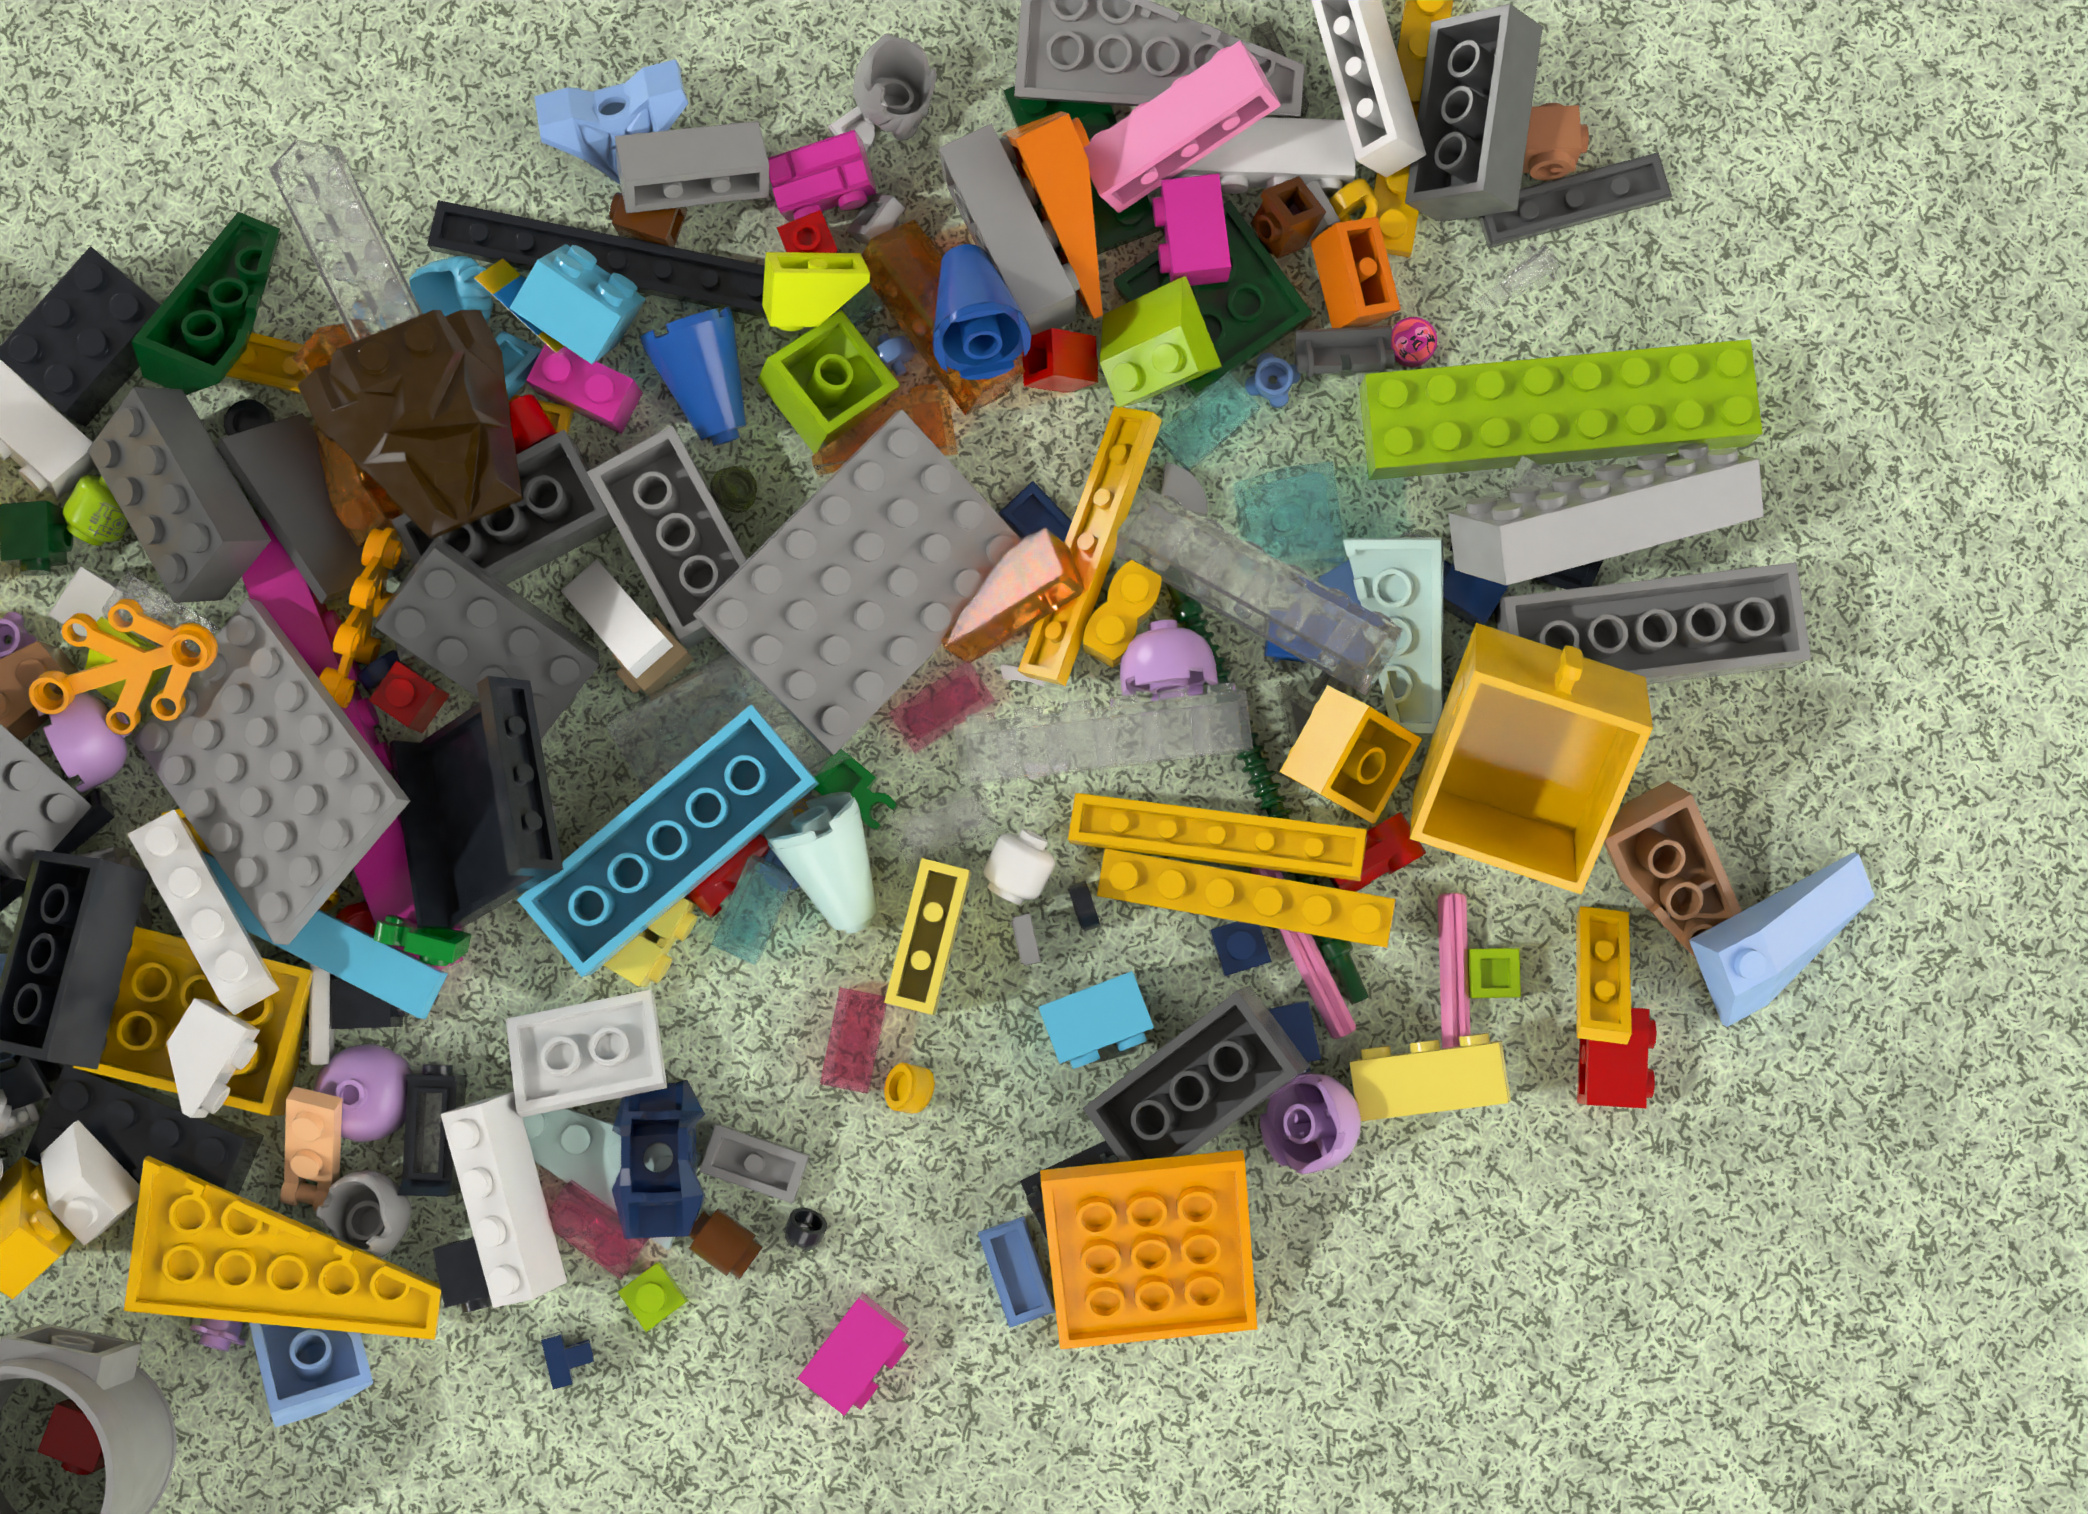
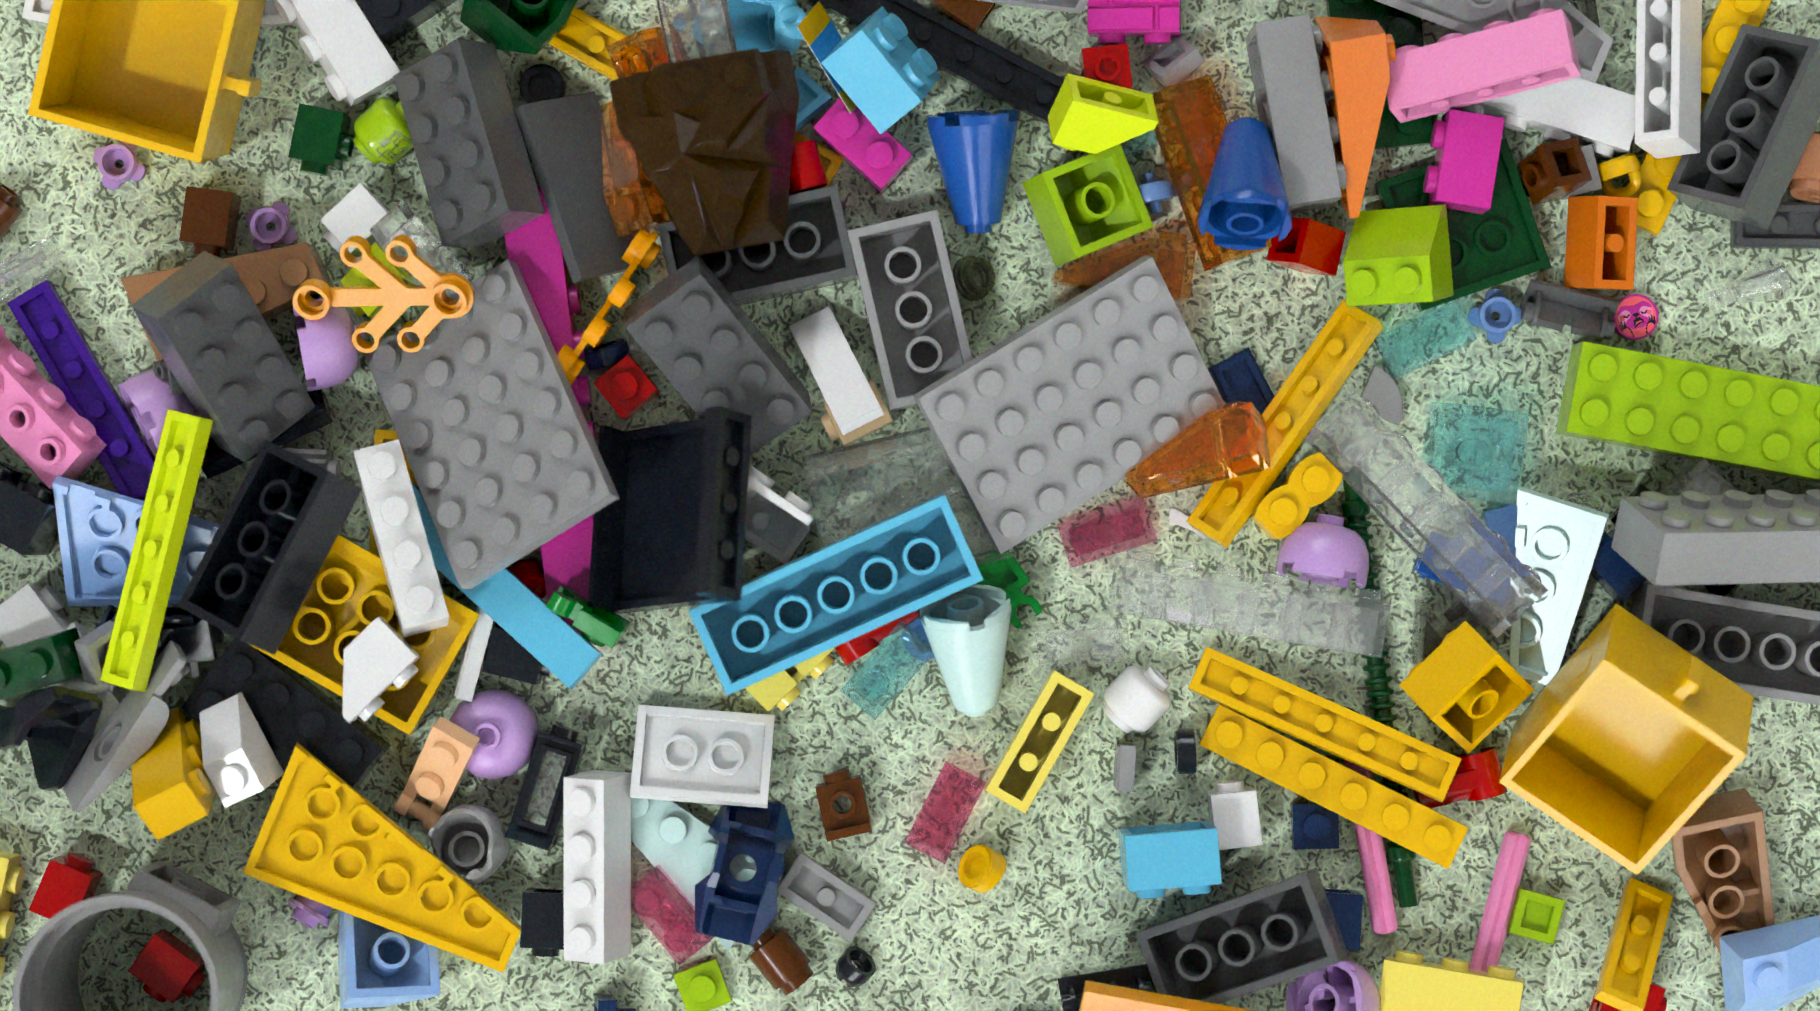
camera: 10 degrees right, 5 degrees up
(585, 786) = (774, 521): none -> white bracket
(763, 1070) = (838, 824): none -> reddish brown brick
(1153, 958) = (1235, 815): none -> white brick

